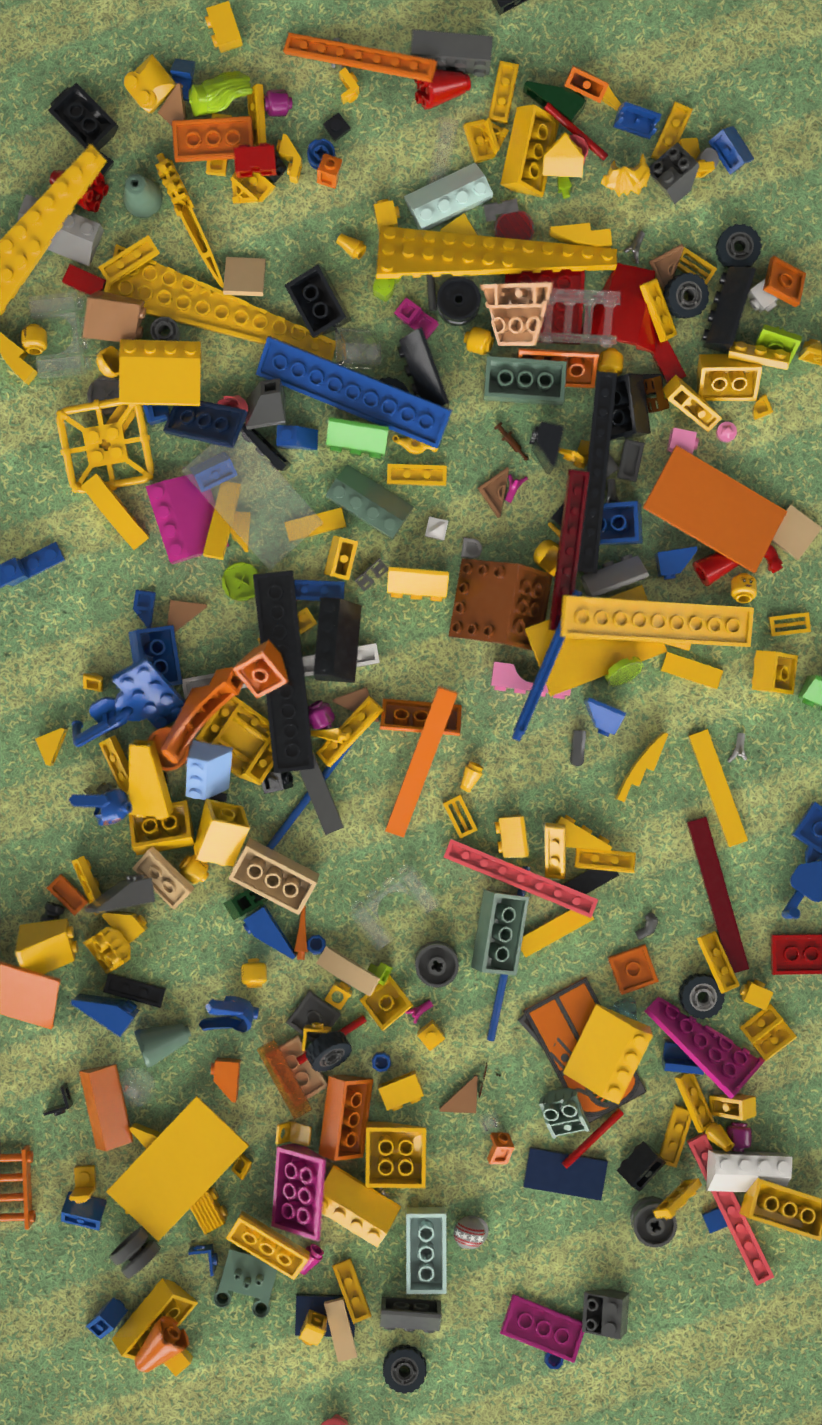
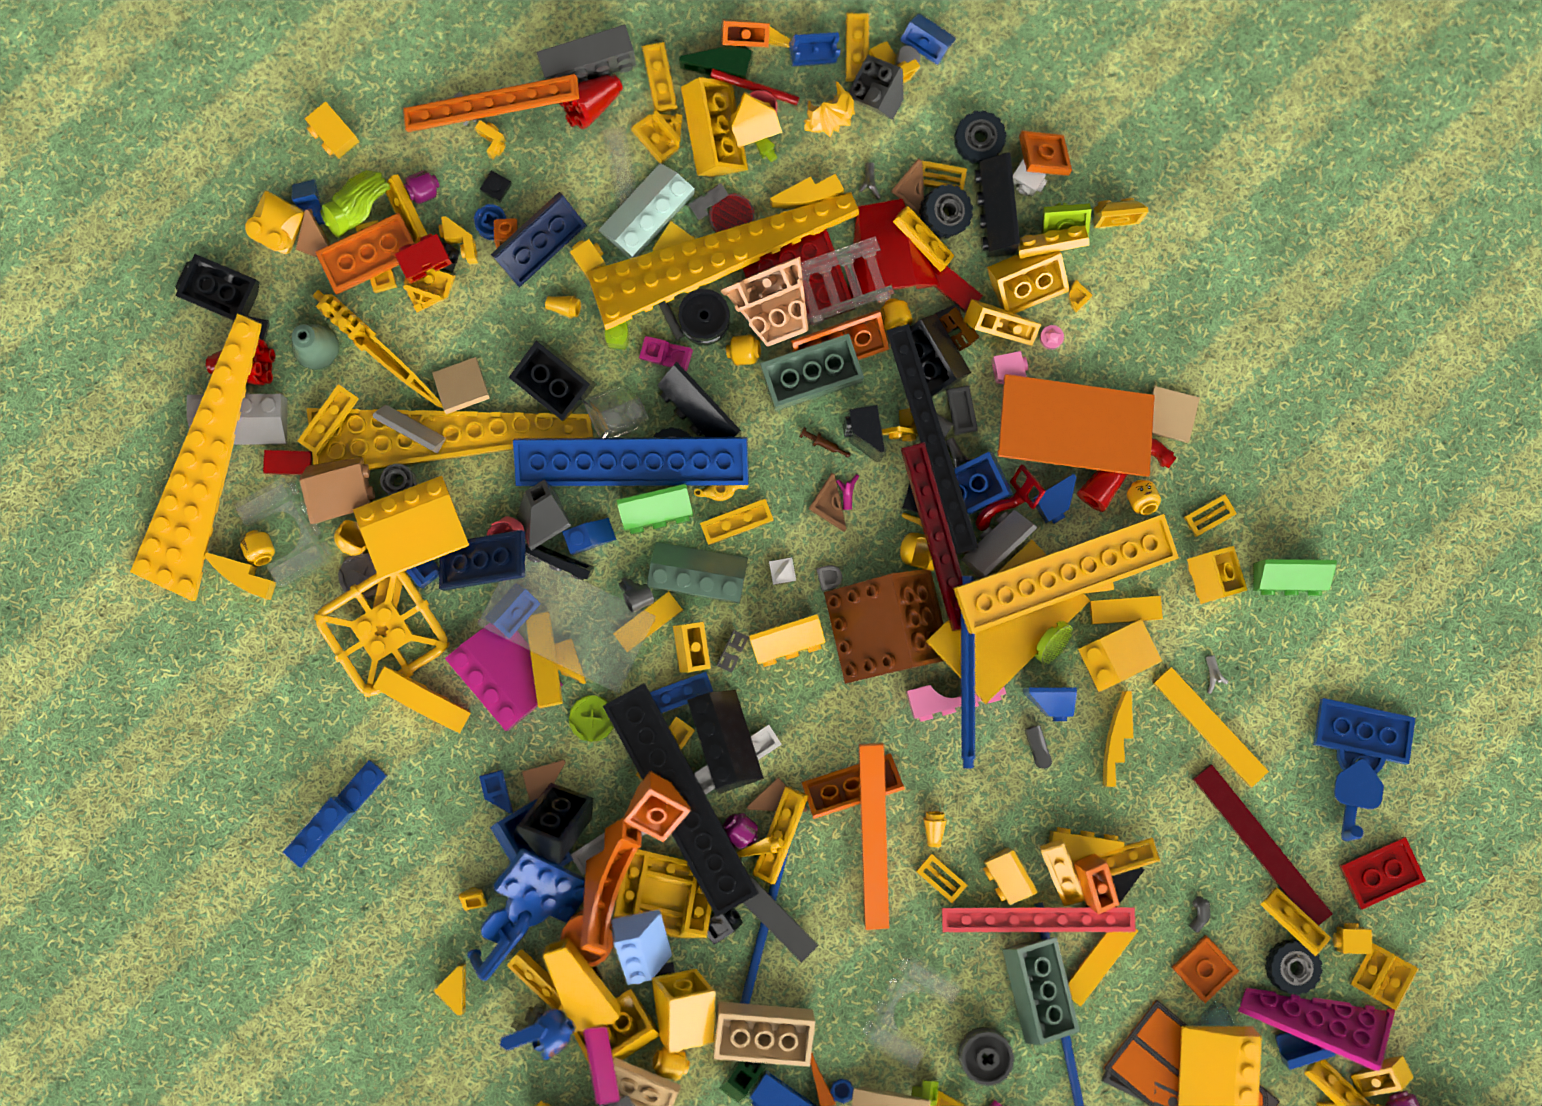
camera: 25 degrees left, 5 degrees down
(140, 847) = (601, 1065): none -> dark pink slope
(181, 648) = (556, 821): none -> black slope
(190, 293) = (409, 428): none -> light grey slope
(314, 499) = (636, 595): none -> dark grey axle
(353, 184) = (538, 239): none -> dark blue tile
(577, 869) = (1096, 883): none -> orange brick
(648, 547) = (1021, 496): none -> red piece
(671, 702) = (1119, 655): none -> yellow slope

